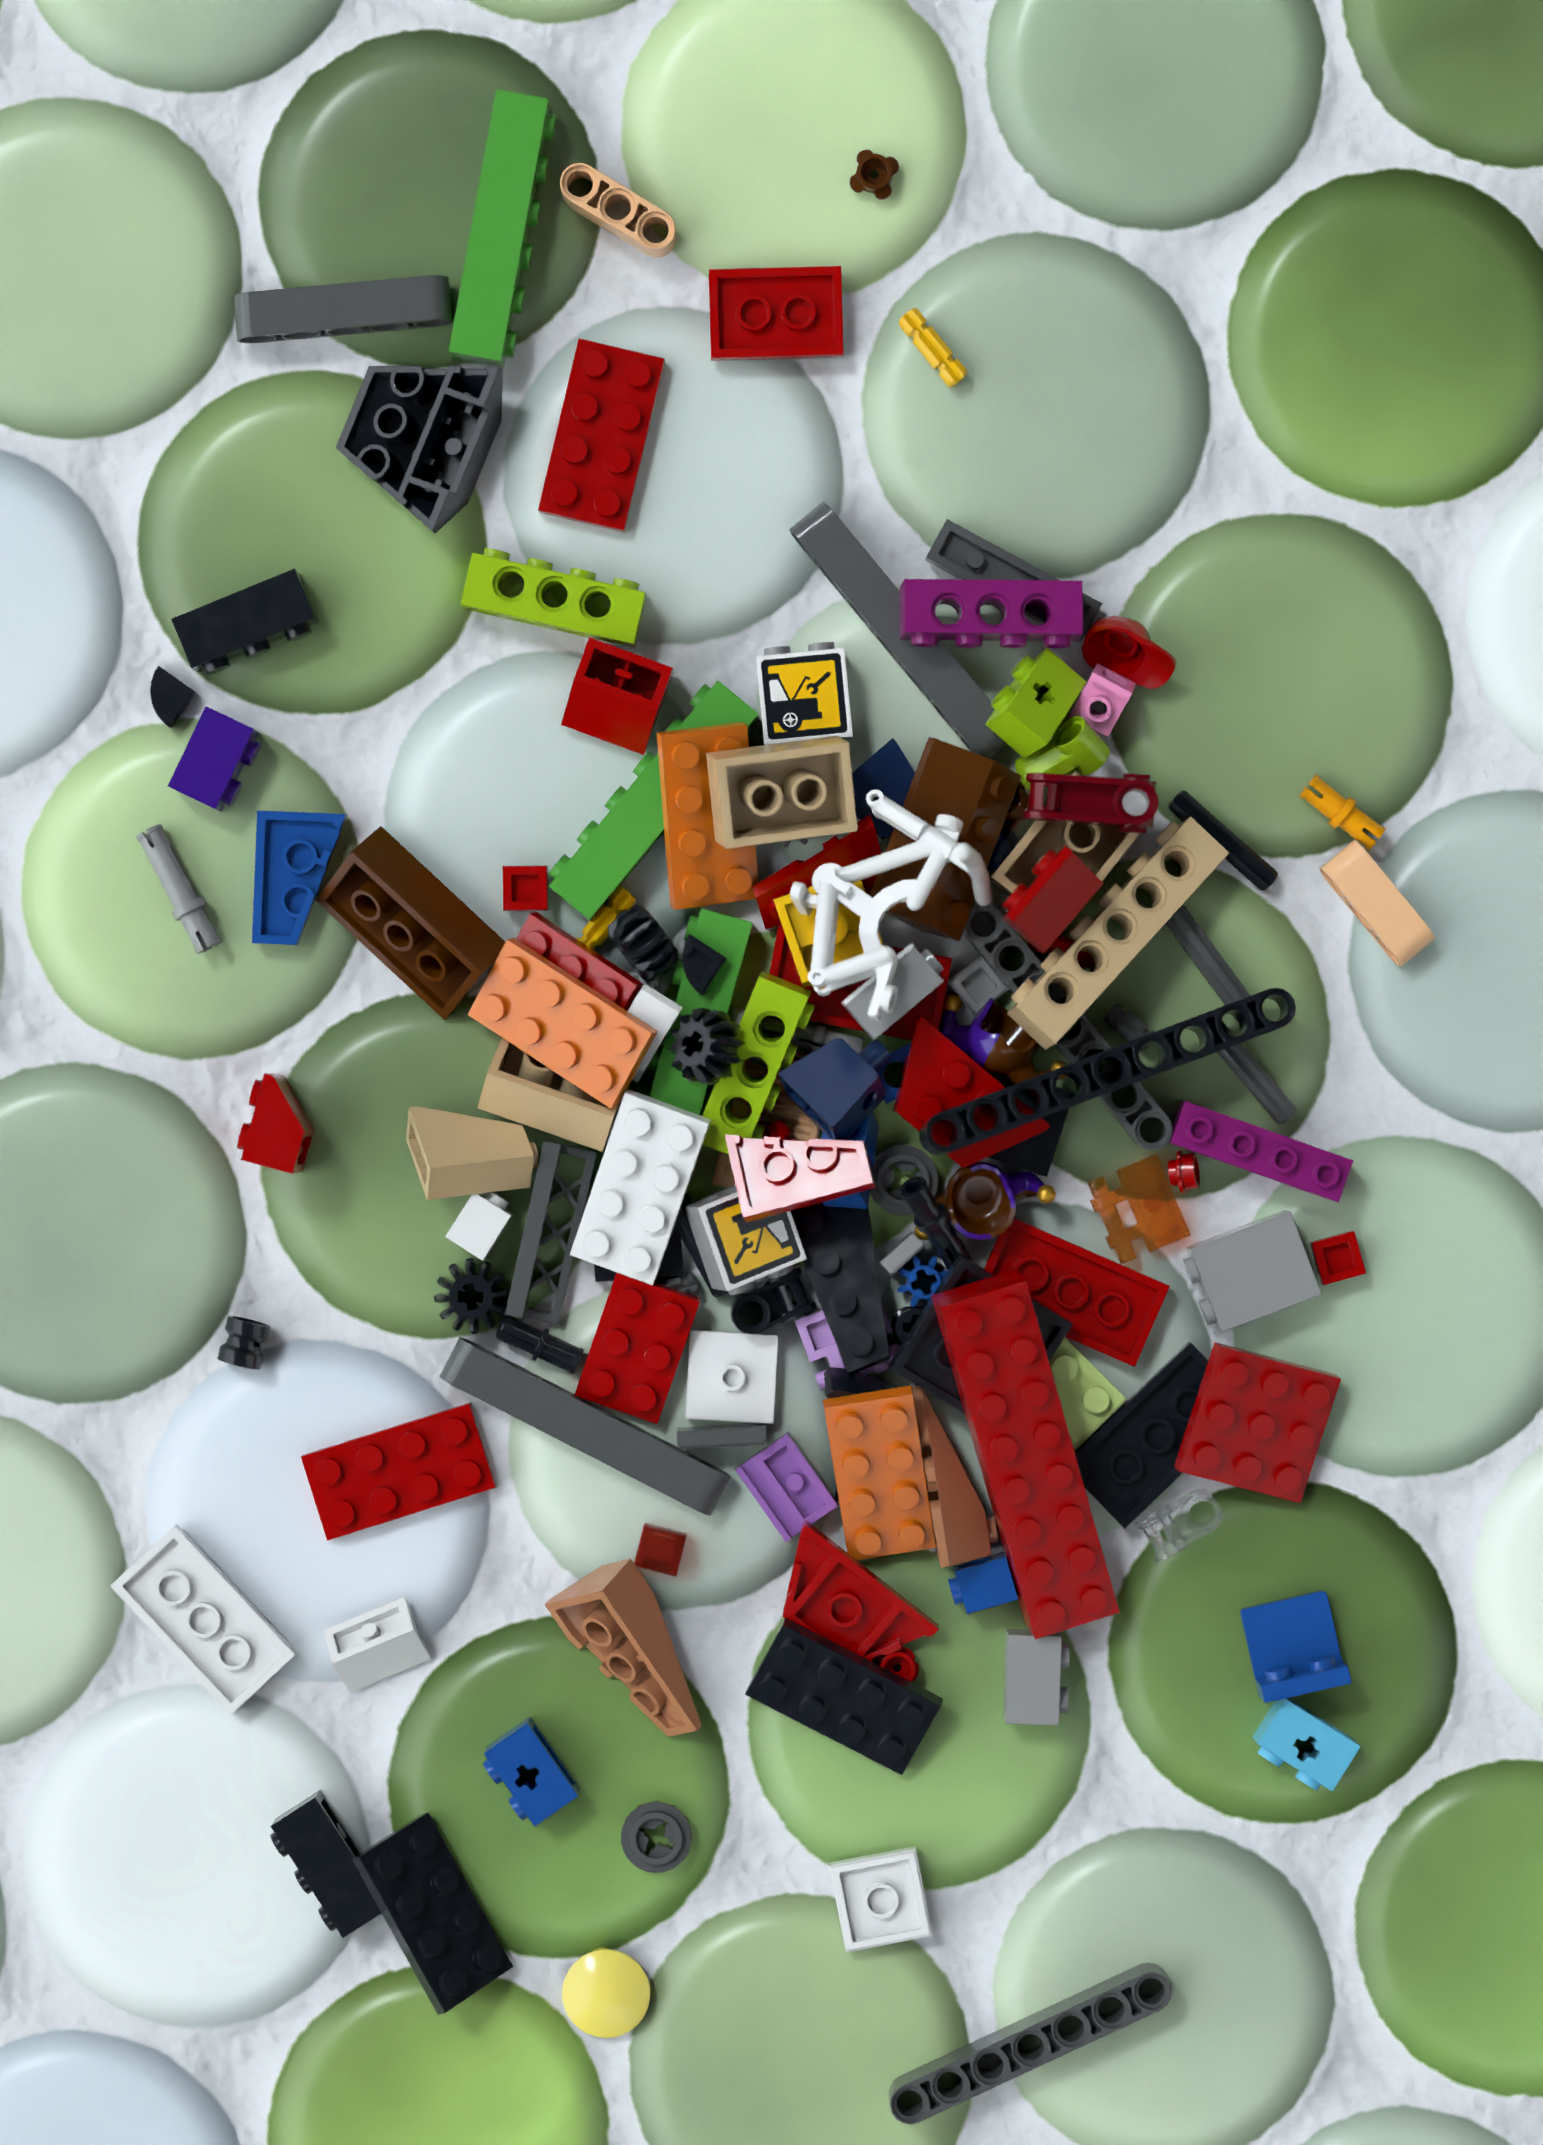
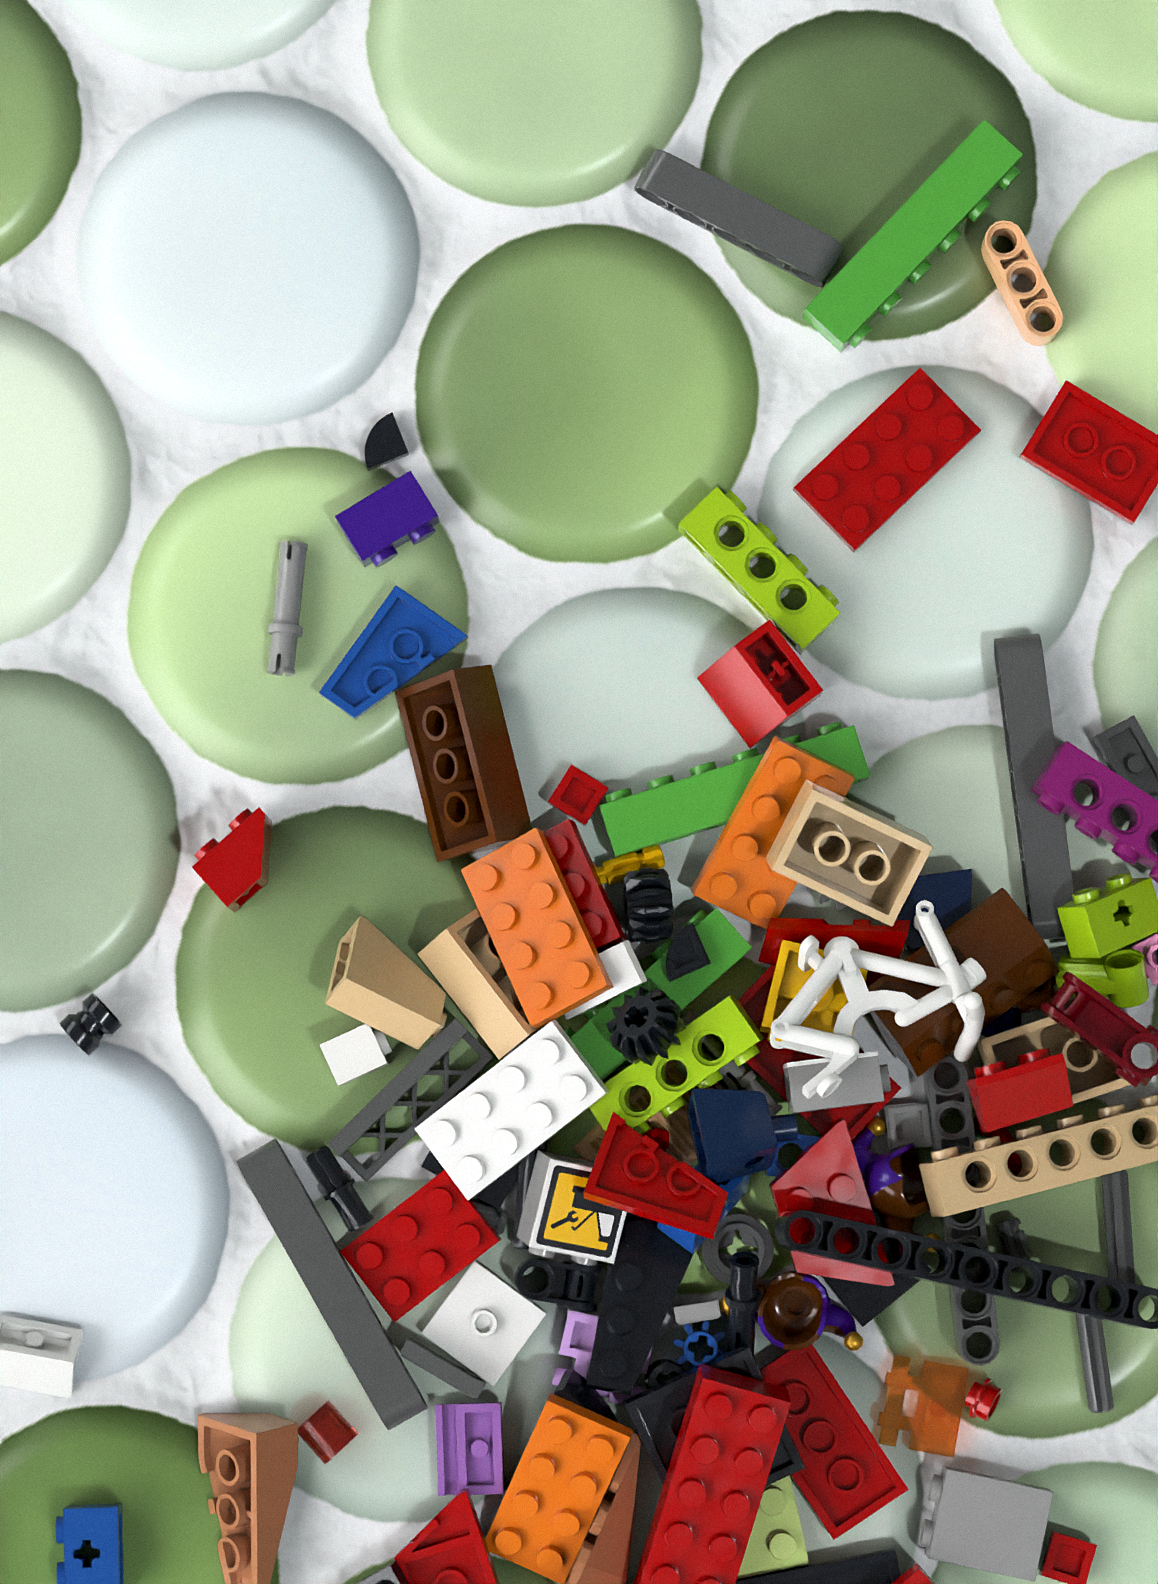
camera: 35 degrees right, 5 degrees down
(246, 622) = (489, 423): black brick -> none
(398, 1471) = (148, 1219): red plate -> none
(425, 434) = (740, 364): black wedge -> none
(481, 1284) = (323, 1105): black gear -> none
(804, 693) = (919, 783): piece -> none
(1260, 1151) = (1059, 1424): magenta brick -> none

